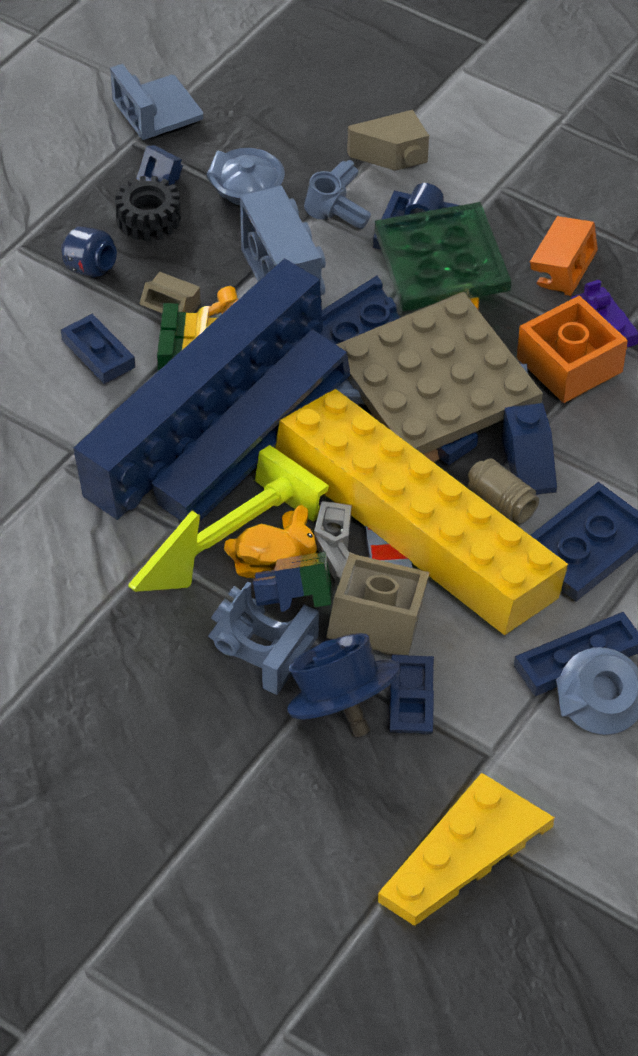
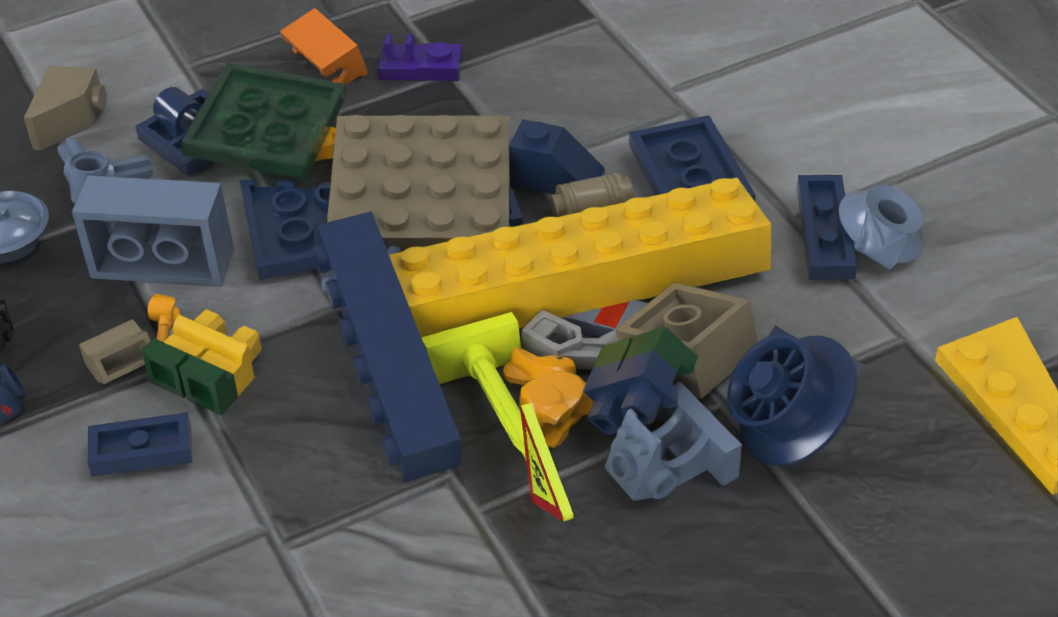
camera: 60 degrees left, 5 degrees down
(195, 387) = (312, 365): dark blue brick -> none
(571, 349) = (457, 77): orange brick -> none

